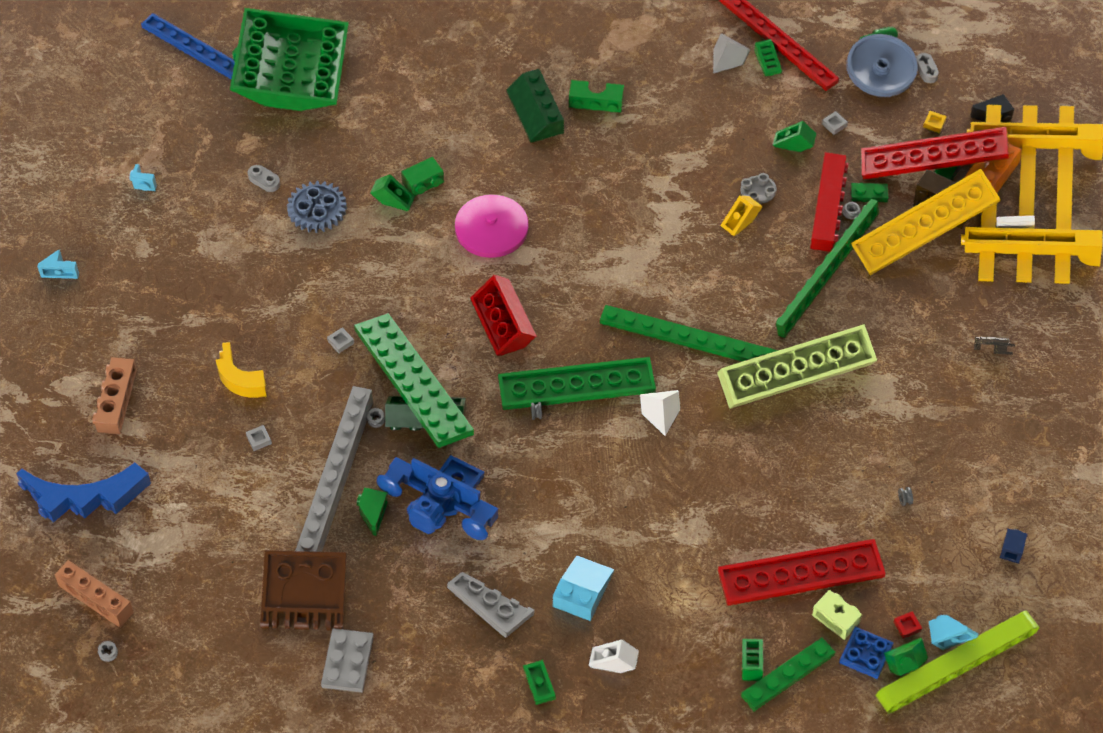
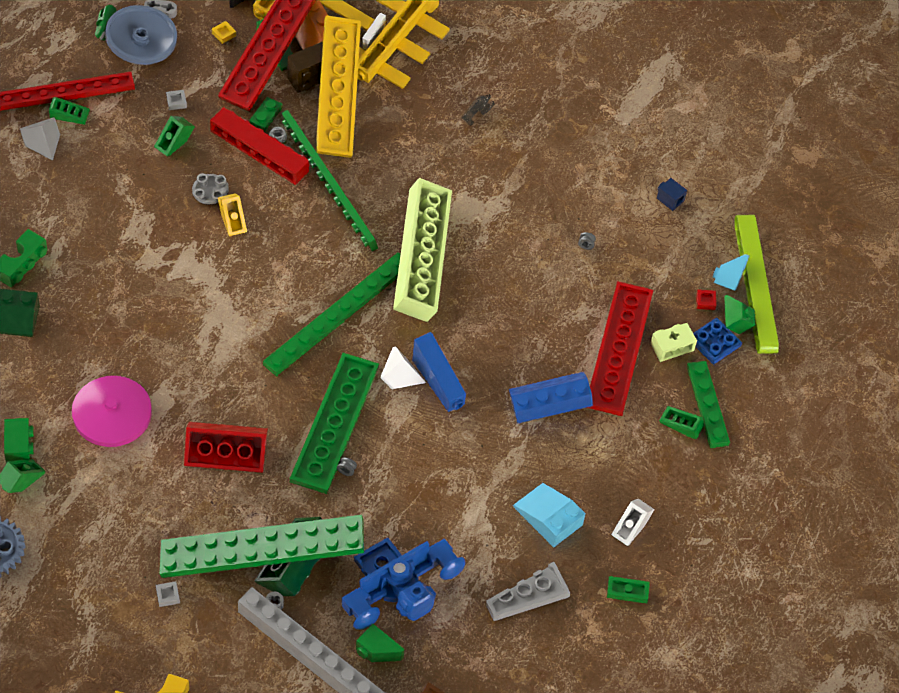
camera: 70 degrees left, 0 degrees up
(673, 435) = (438, 372): none -> blue slope
(705, 534) = (551, 397): none -> blue slope

